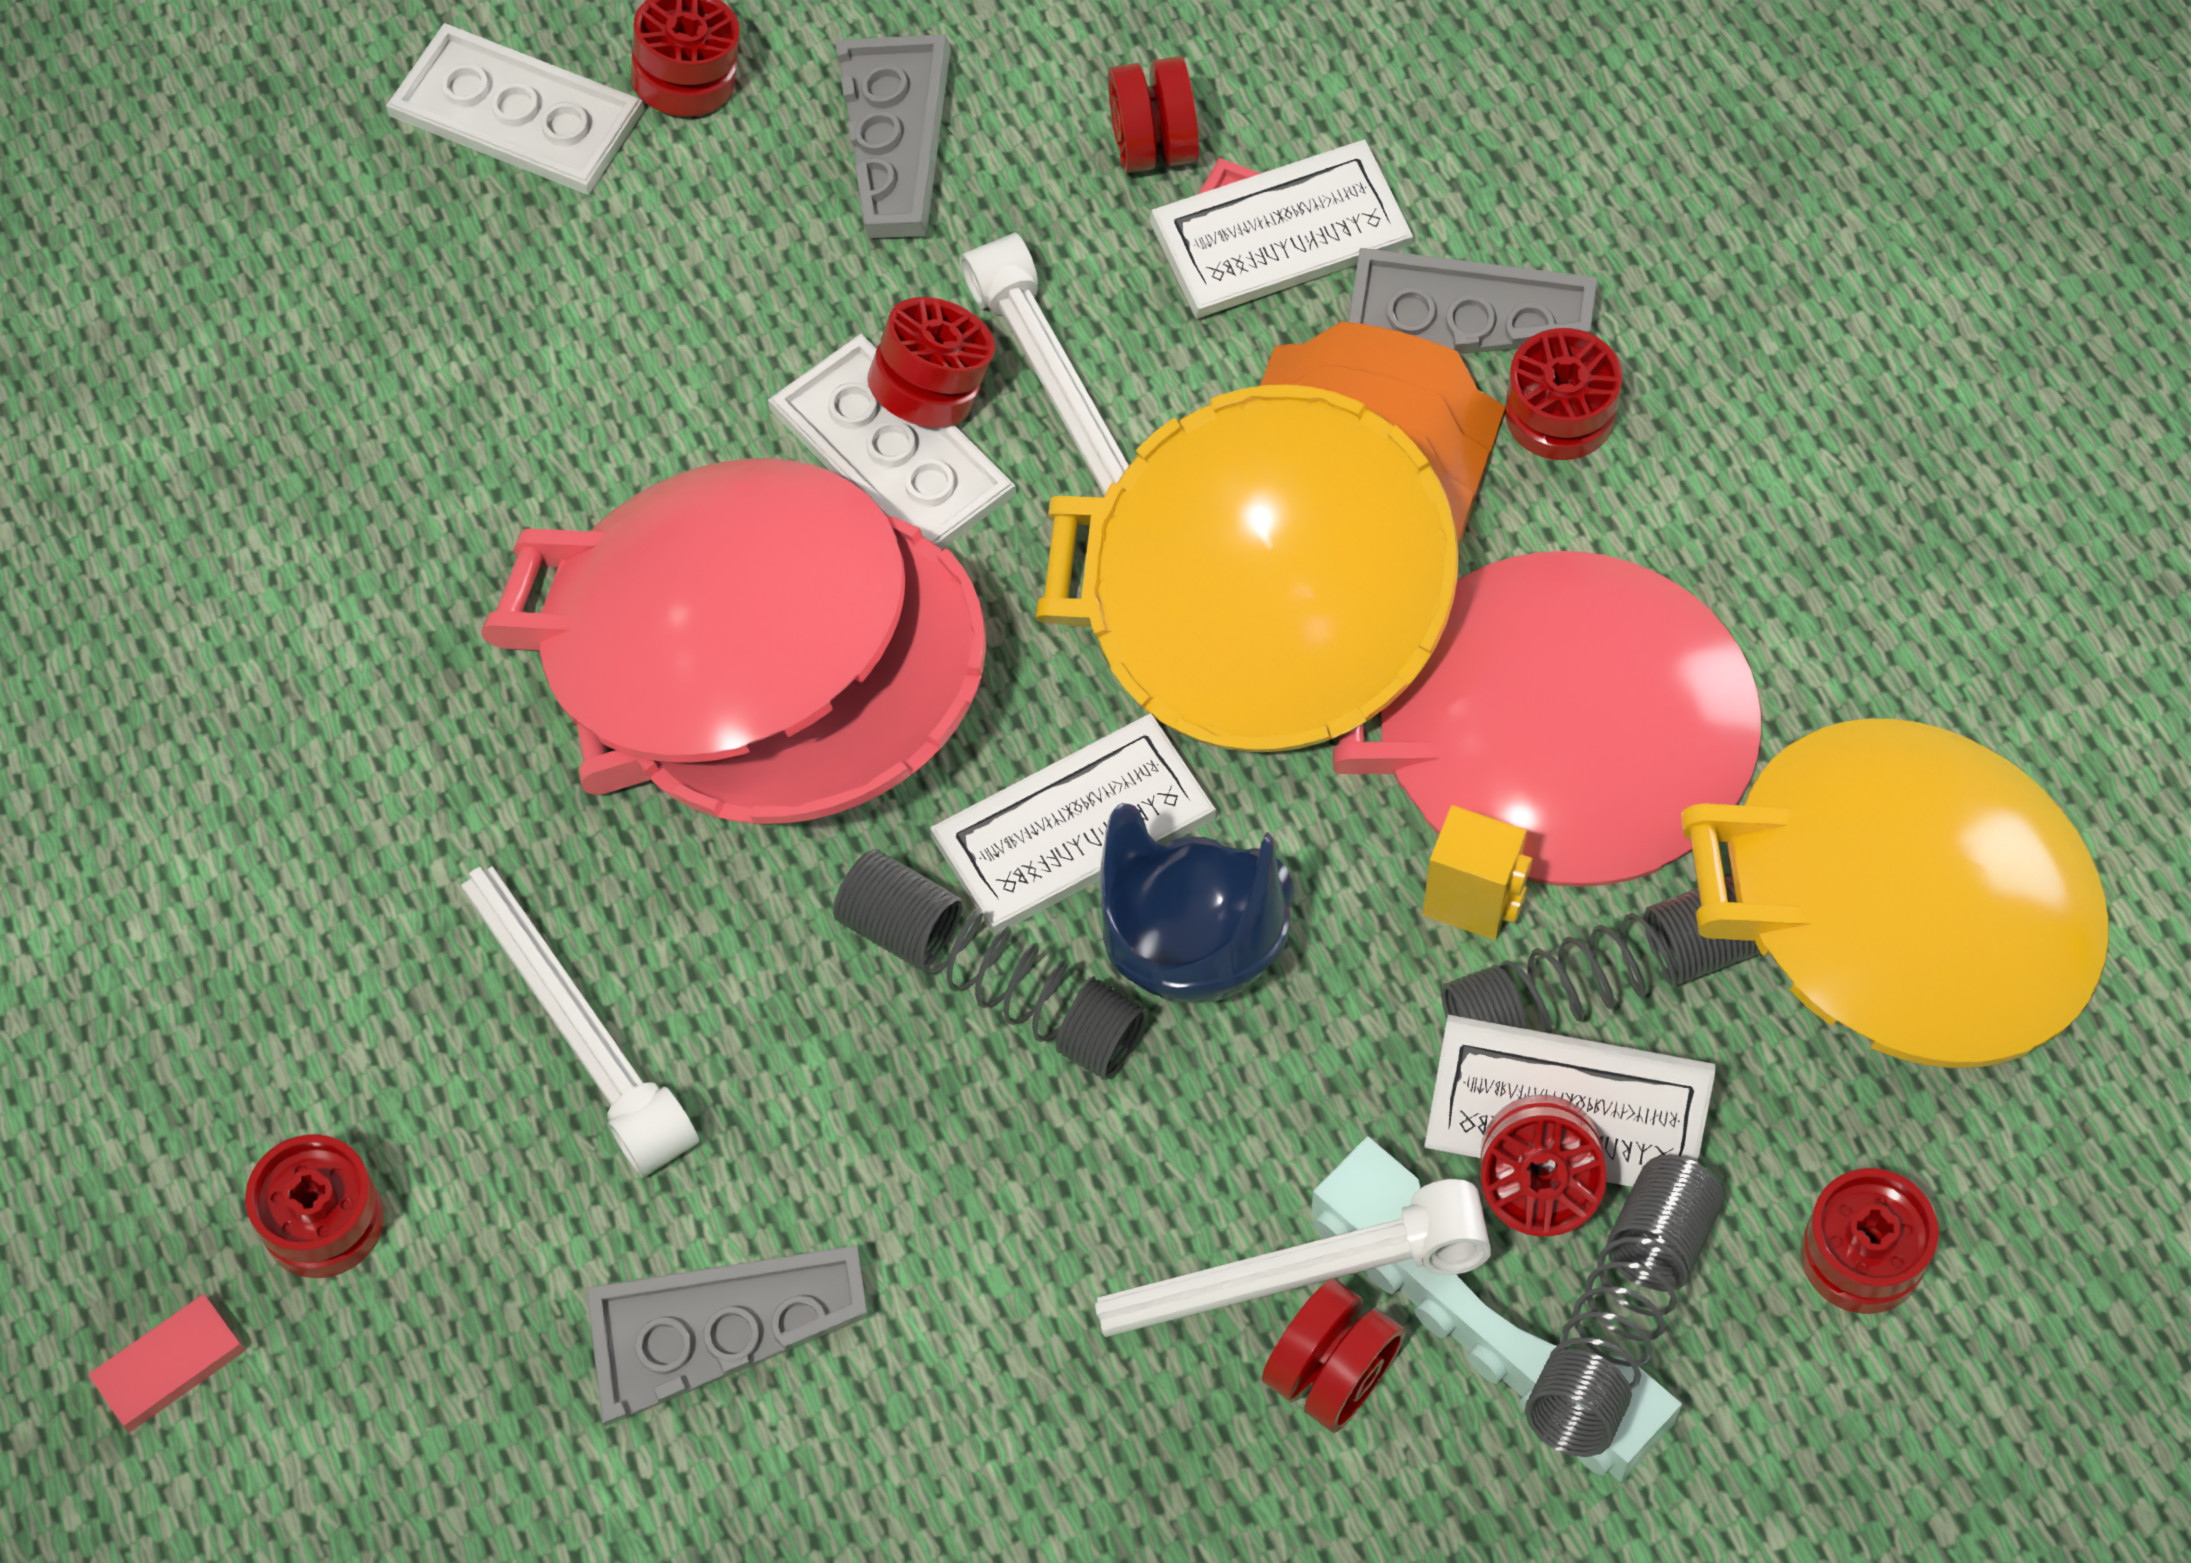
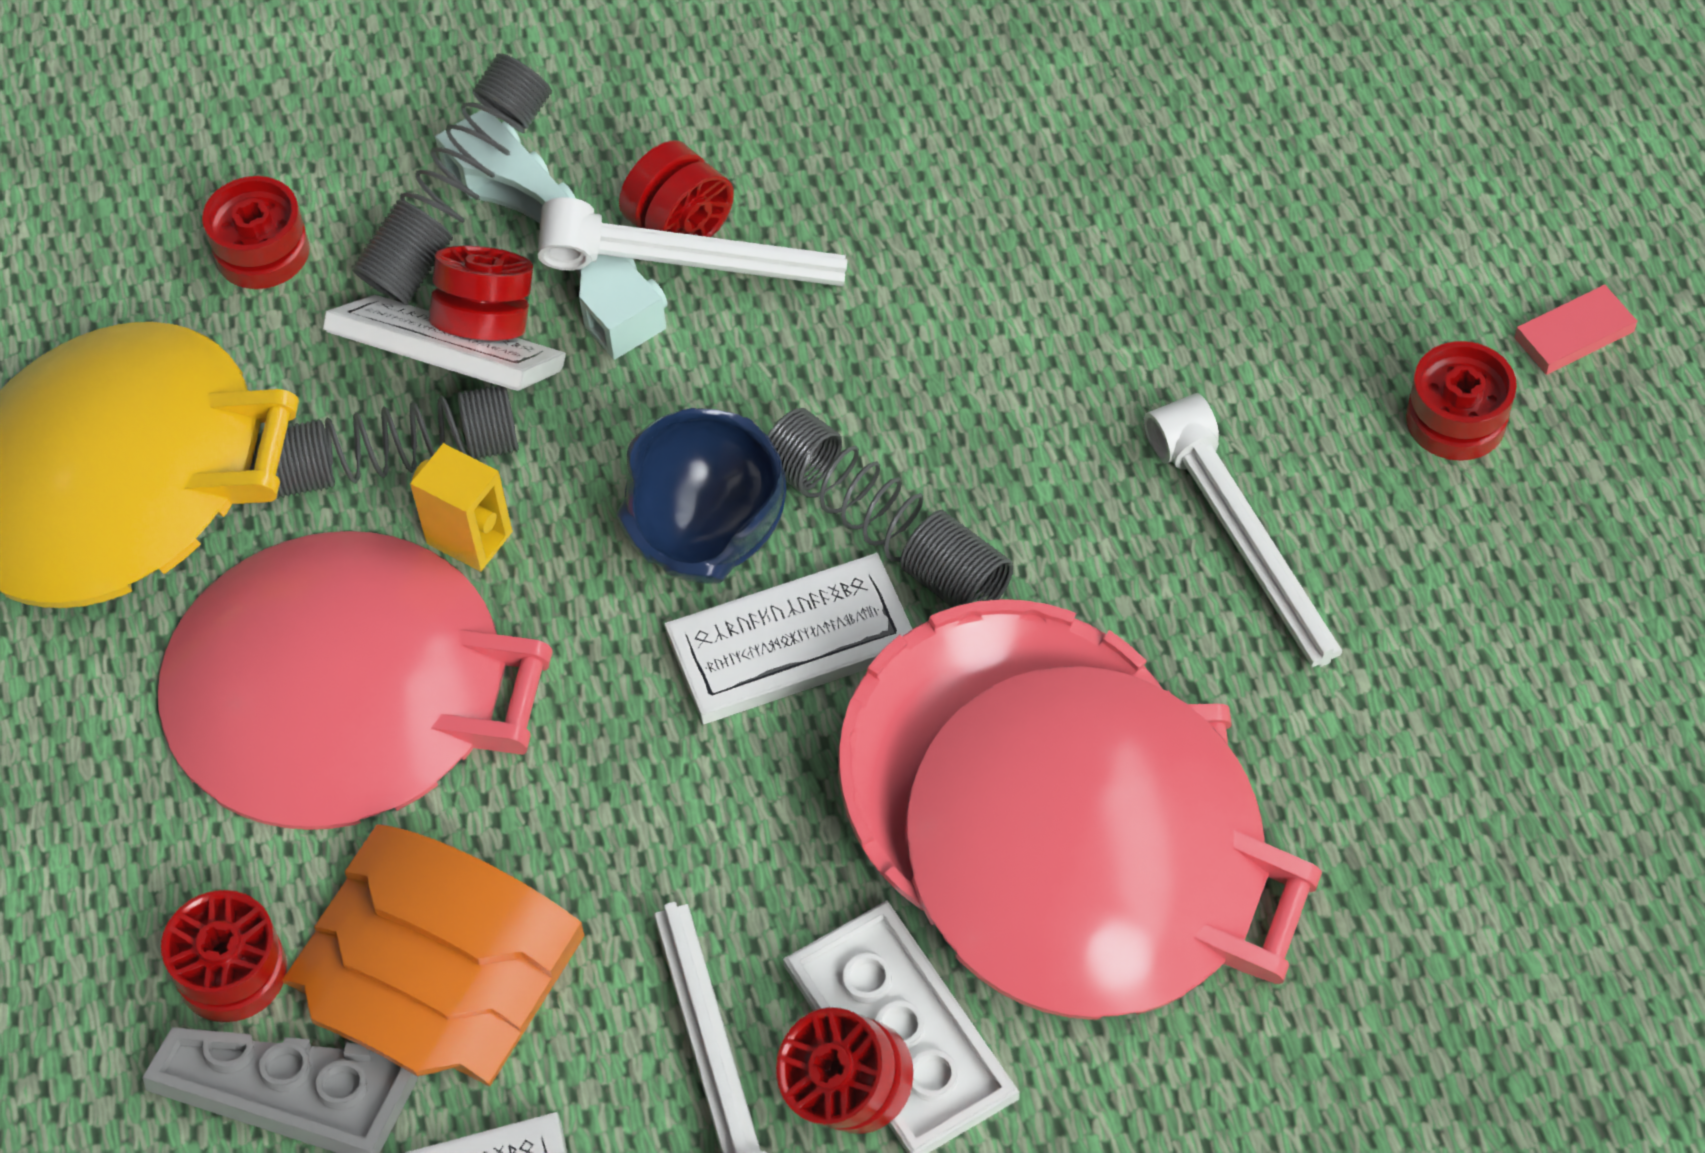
camera: 170 degrees left, 5 degrees down
(706, 1324) = (1133, 299): light grey wing -> none
(1263, 568) = (569, 788): yellow dish -> none

